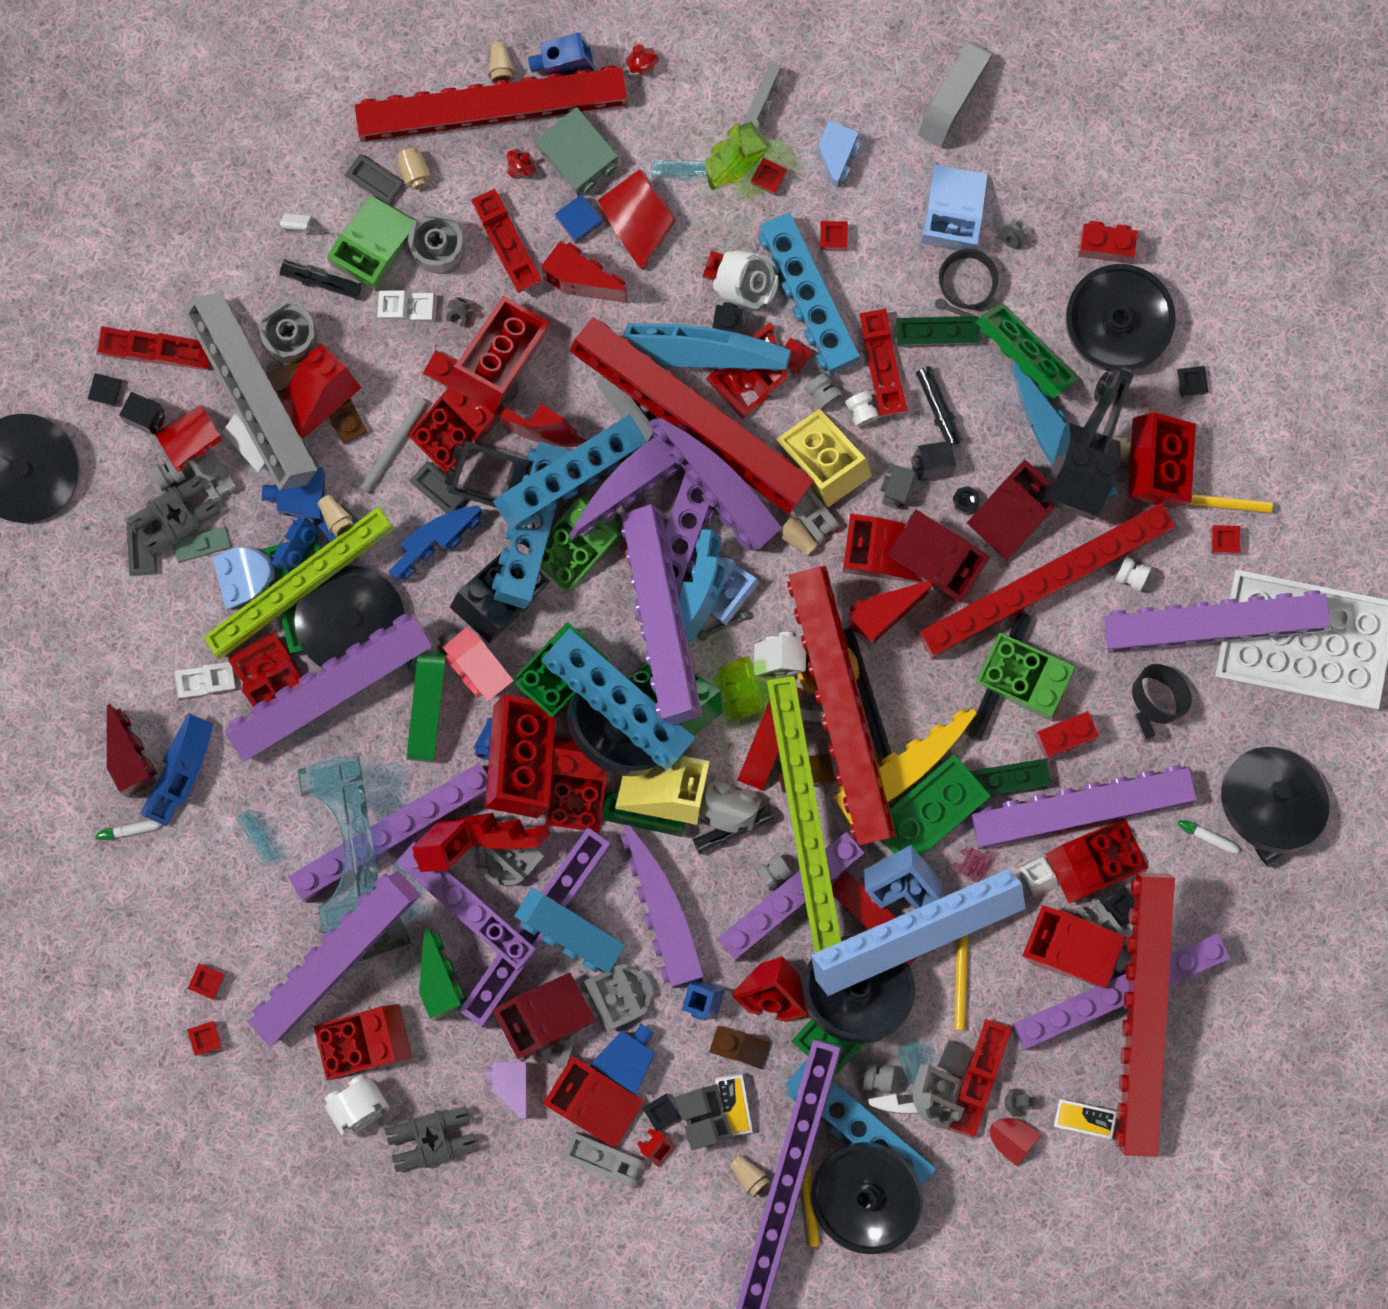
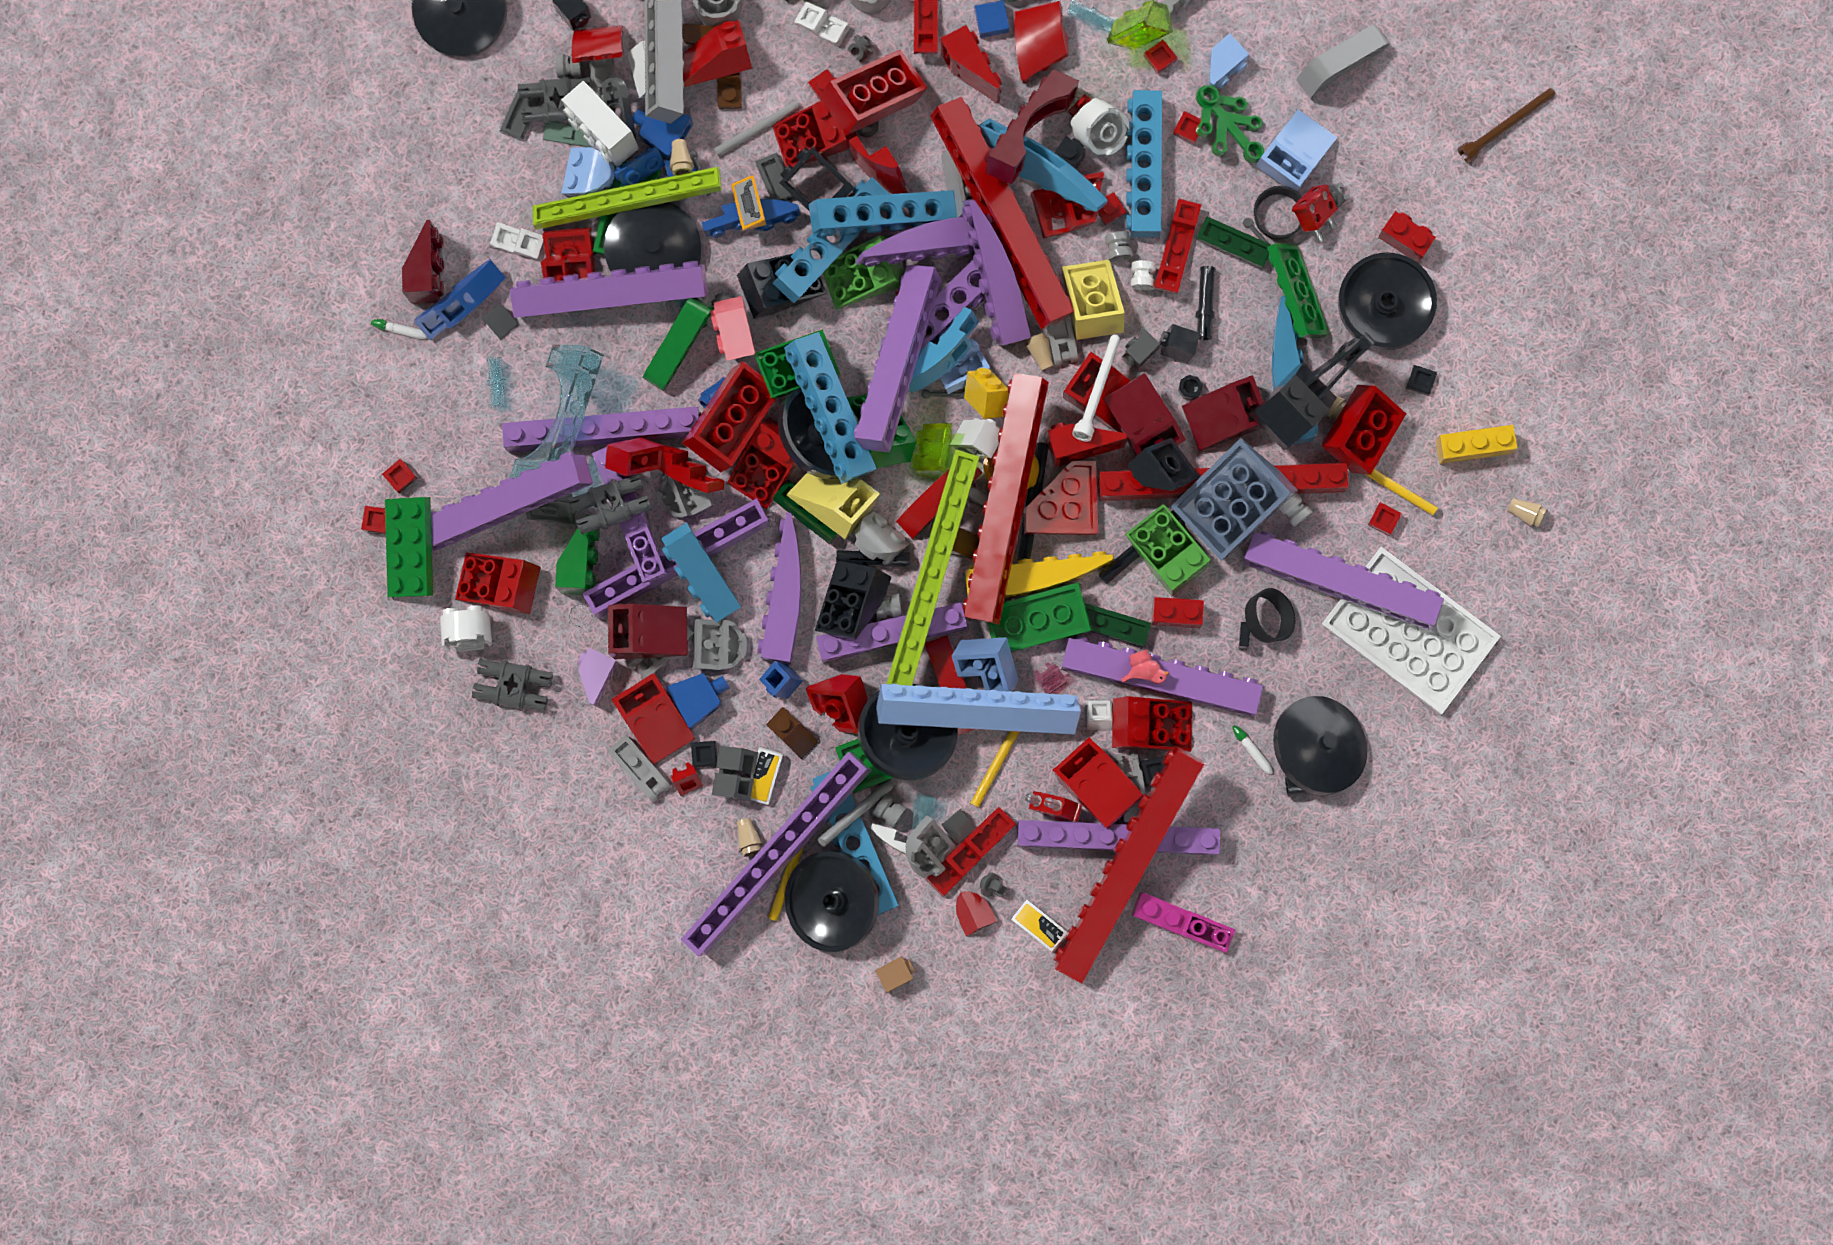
camera: 30 degrees right, 0 degrees up
(229, 771) = (500, 321): none -> dark grey slope
(235, 521) = (599, 124): none -> white piece
(244, 510) = (622, 95): none -> dark grey beam
(255, 1050) = (409, 547): none -> green plate
(427, 528) = (748, 203): none -> slope
(443, 893) = (614, 493): none -> dark grey pin
(682, 271) = (1051, 98): none -> dark red arch
(735, 883) = (852, 599): none -> black slope
(766, 607) = (986, 393): none -> yellow brick
(847, 1097) = (855, 813): none -> light grey bar
(870, 211) = (1227, 121): none -> green plant
(885, 597) = (1084, 429): none -> white piece
(900, 678) = (1066, 503): none -> plate
(966, 1239) = (895, 973): none -> medium nougat brick
(983, 597) = (1163, 467): none -> black slope
(1003, 260) = (1315, 209): none -> red piece
(1045, 991) = (1054, 806): none -> red piece
(1064, 808) = (1145, 668): none -> coral animal
(1068, 594) = (1233, 499): none -> sand blue slope
(1128, 121) = (1472, 148): none -> reddish brown piece
(1226, 1044) = (1183, 922): none -> dark pink slope
(1279, 420) = (1476, 444): none -> yellow brick
(1363, 463) = (1527, 511): none -> tan cone

